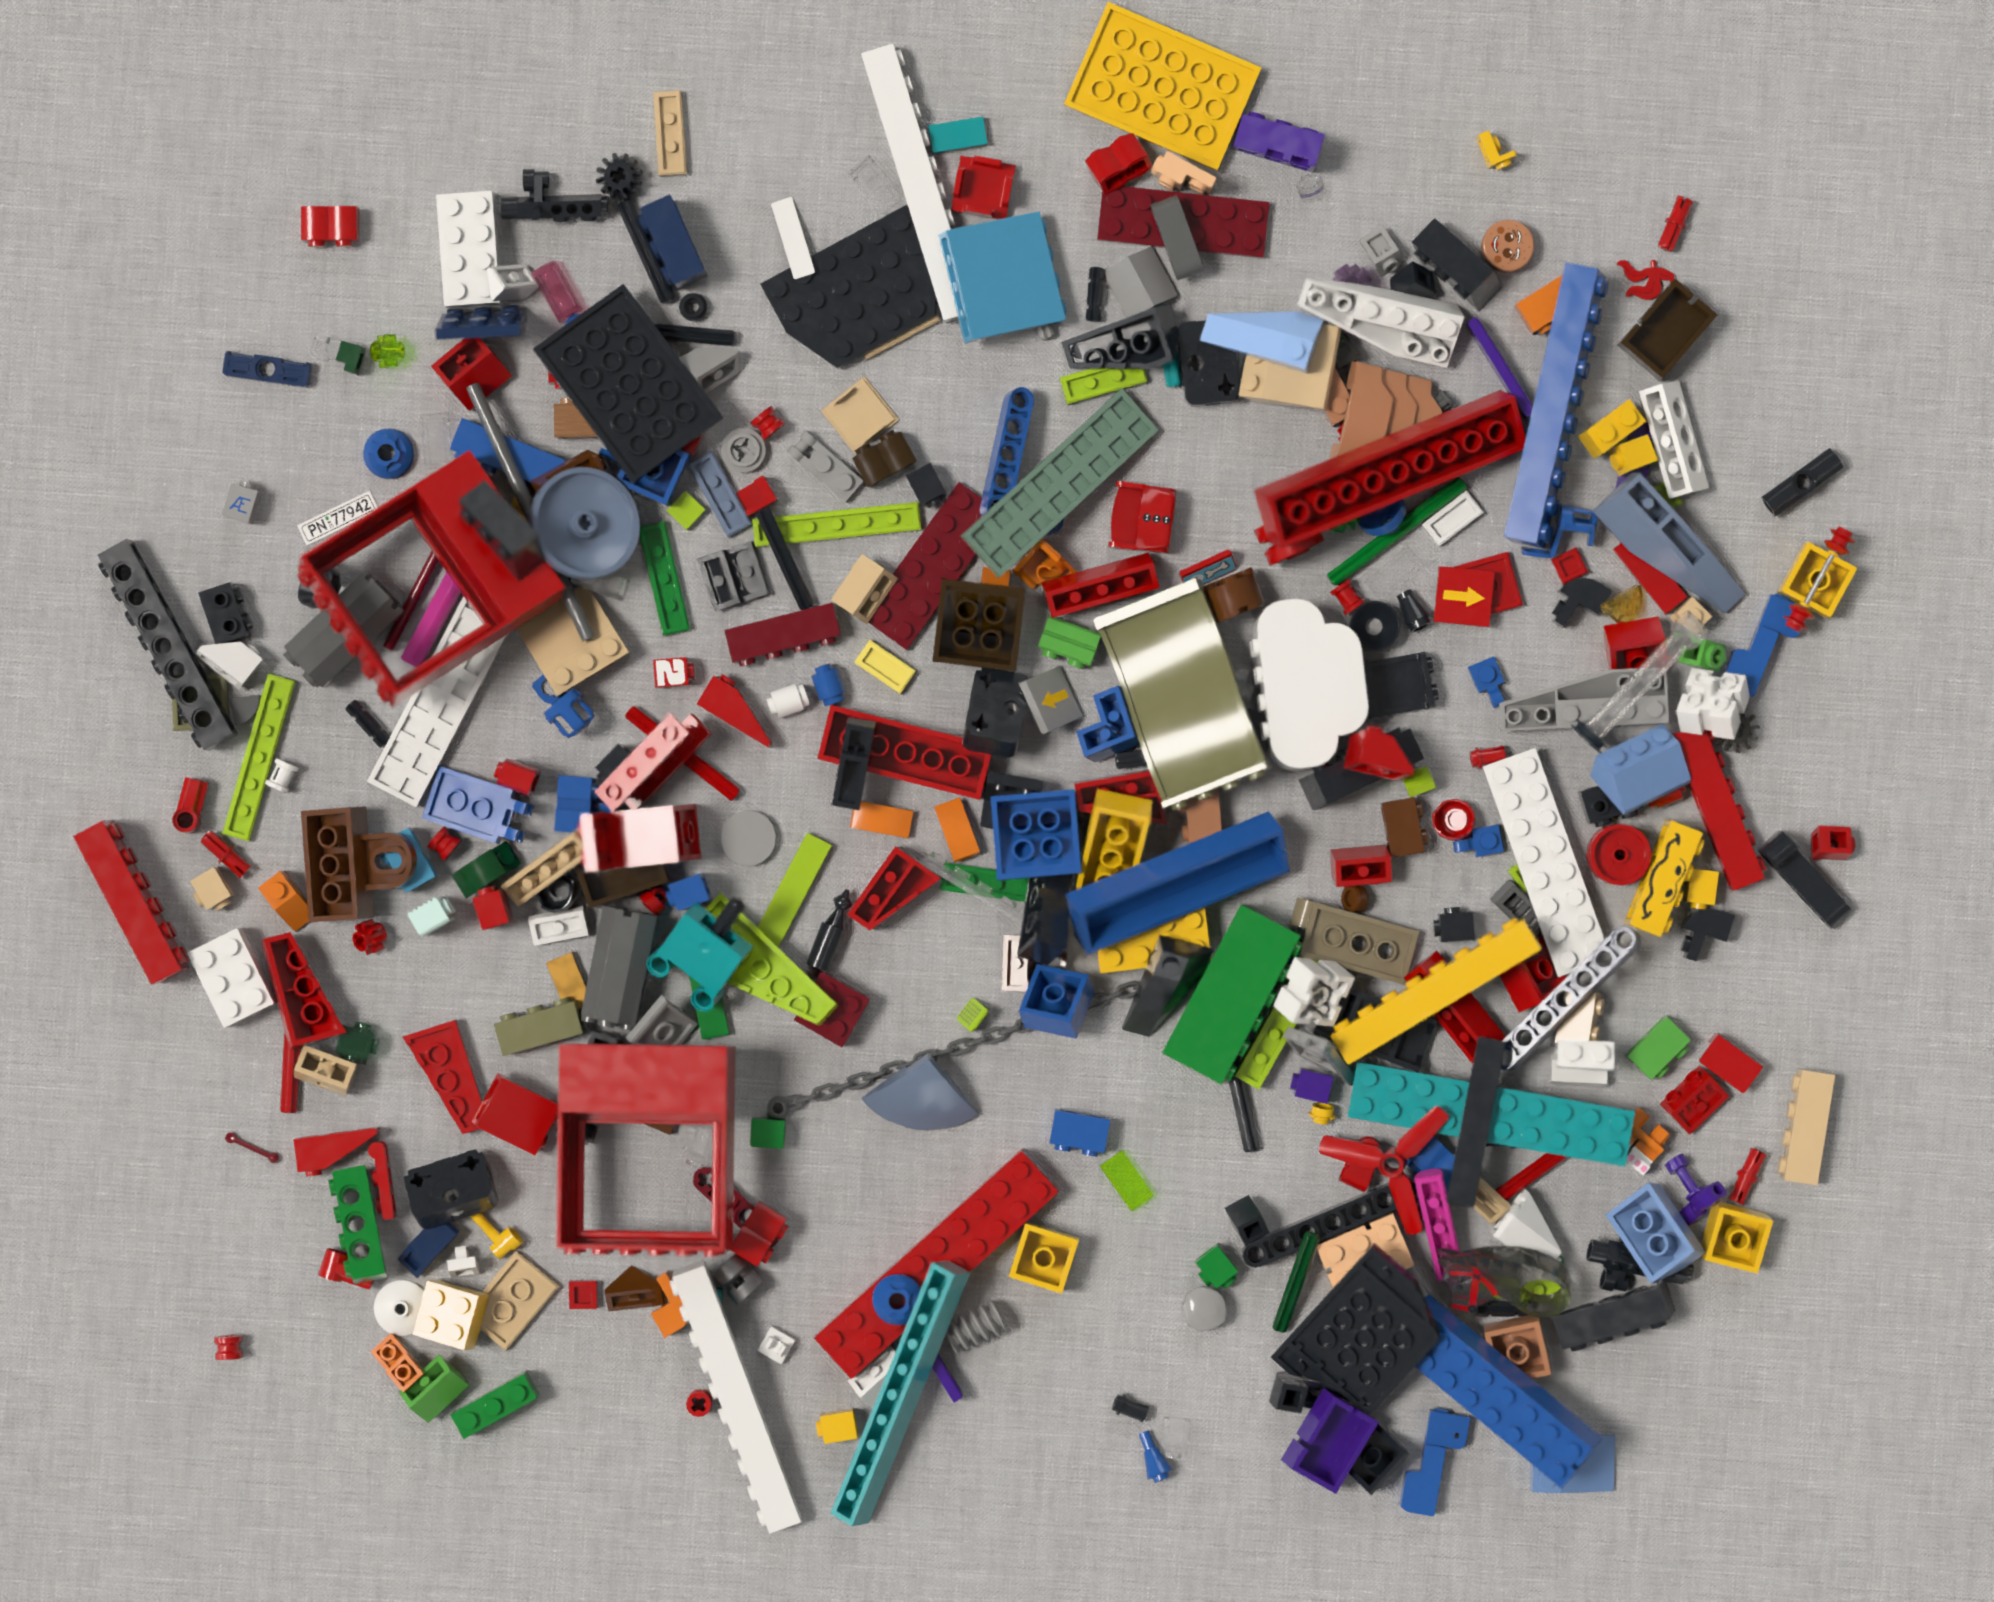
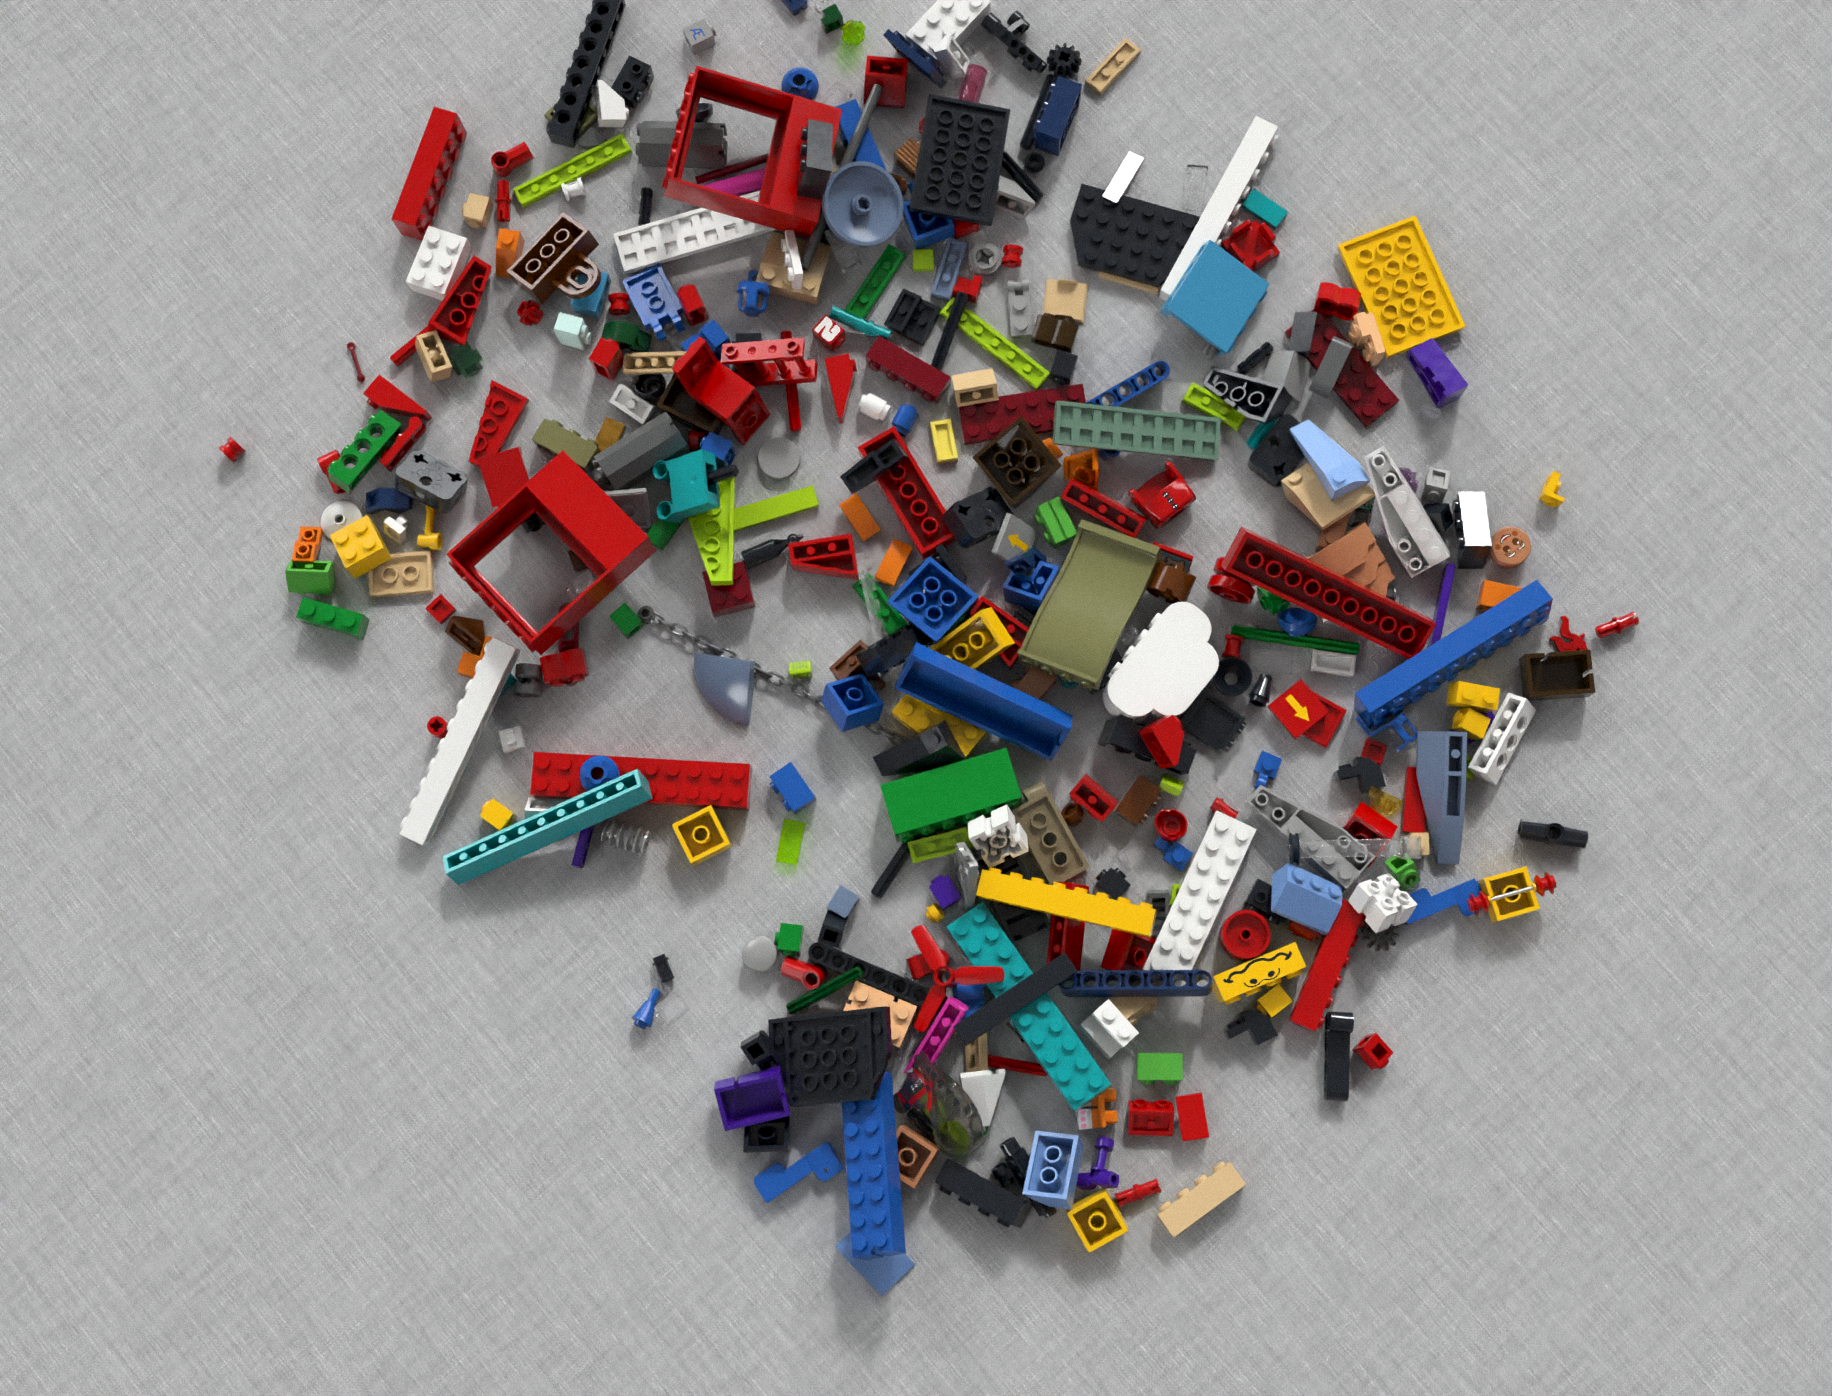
camera: 55 degrees right, 10 degrees down
(571, 642) = (792, 259): none -> white plate
(702, 630) = (858, 323): none -> teal pin
(1081, 710) = (1025, 561): none -> dark blue slope
(1117, 229) = (1302, 332): none -> black slope
(1231, 1187) = (843, 901): none -> sand blue panel
(1258, 1284) = (802, 972): none -> red piece

